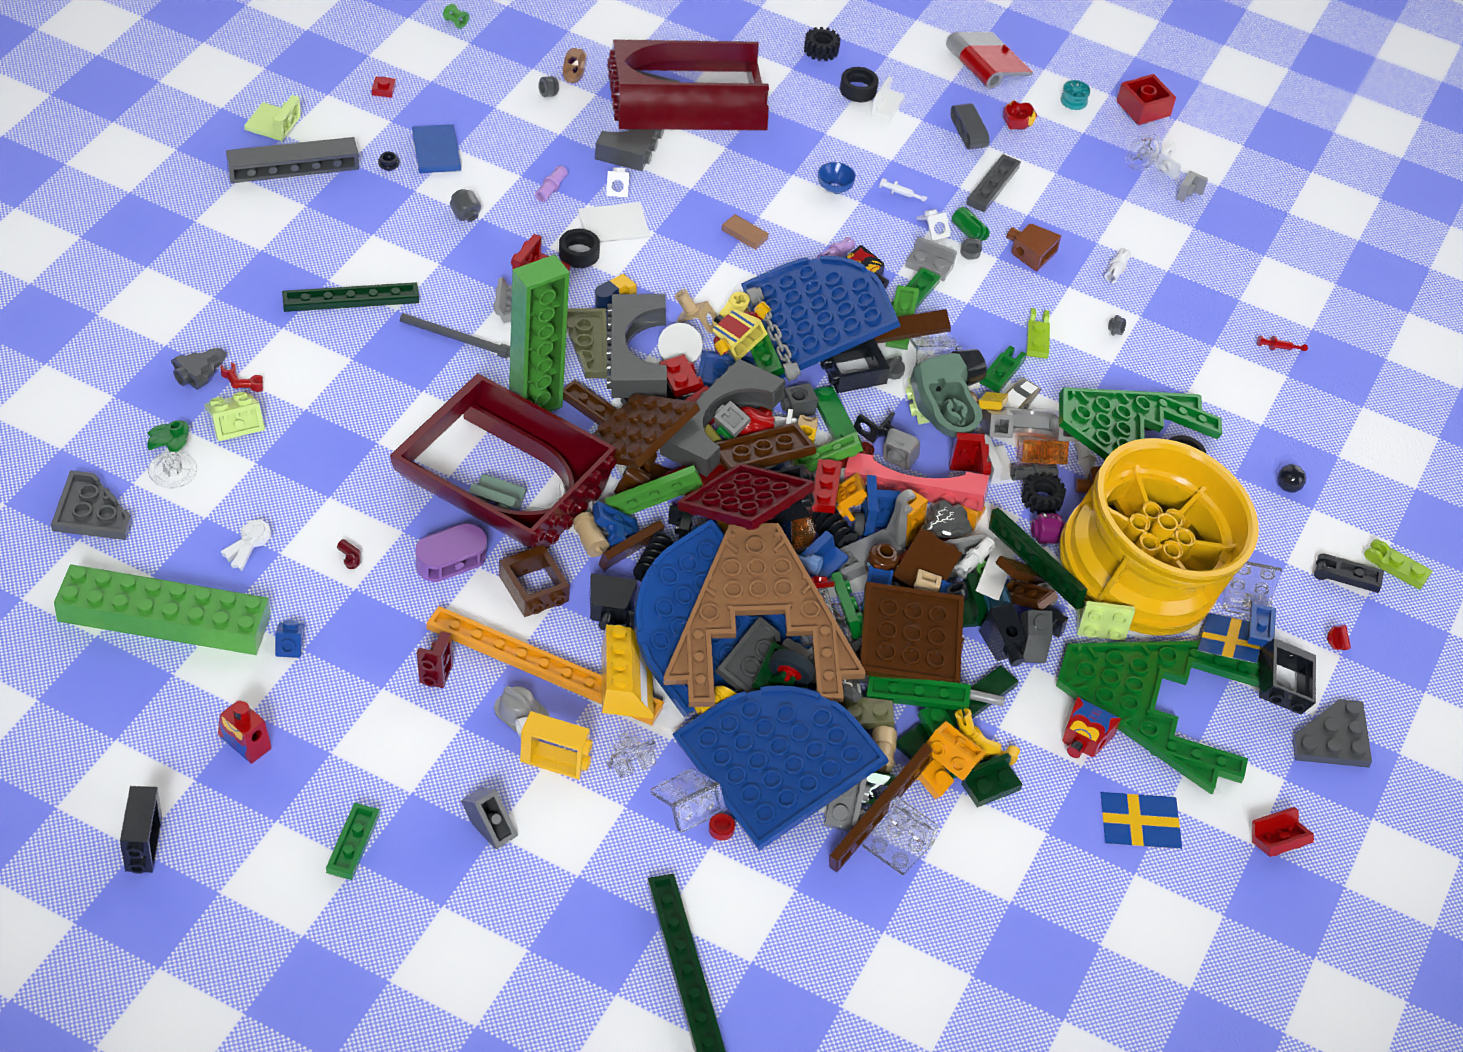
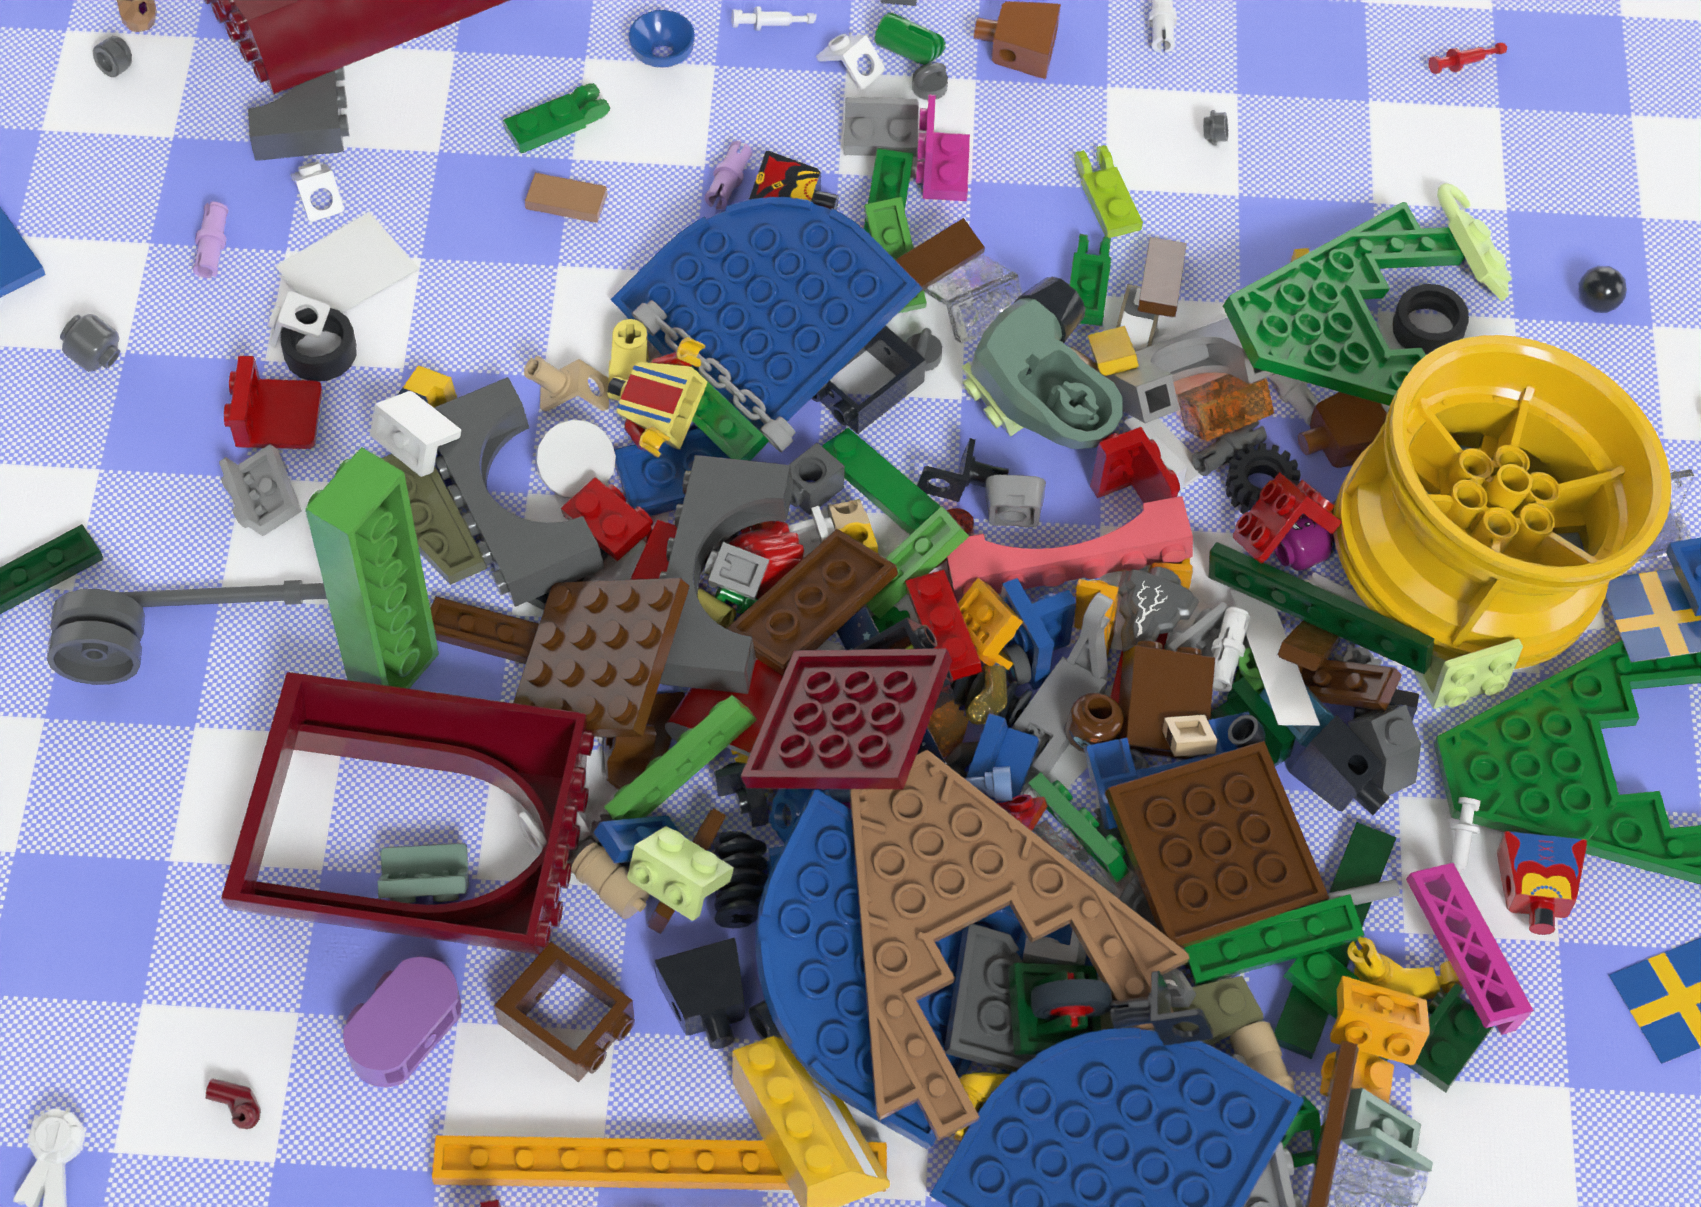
camera: 20 degrees left, 10 degrees up
(394, 328) = (96, 636): none -> dark grey wheel
(568, 228) = (285, 316): none -> white bracket
(602, 297) = (412, 430): none -> white panel
(623, 536) = (677, 871): none -> yellowish green bracket
(761, 194) = (556, 118): none -> green hinge
(833, 687) = (1157, 1010): none -> black bracket
(834, 525) = (992, 698): none -> clear yellow arm
(927, 799) = (1382, 1131): none -> sand green bracket
(954, 286) = (945, 157): none -> dark pink bracket
(1031, 738) = (1470, 947): none -> dark pink fence
(1041, 499) = (1276, 513): none -> red bracket
(1043, 380) = (1162, 277): none -> tile
(1056, 691) = (1464, 833): none -> white piece
(1231, 429) = (1475, 242): none -> yellowish green plate

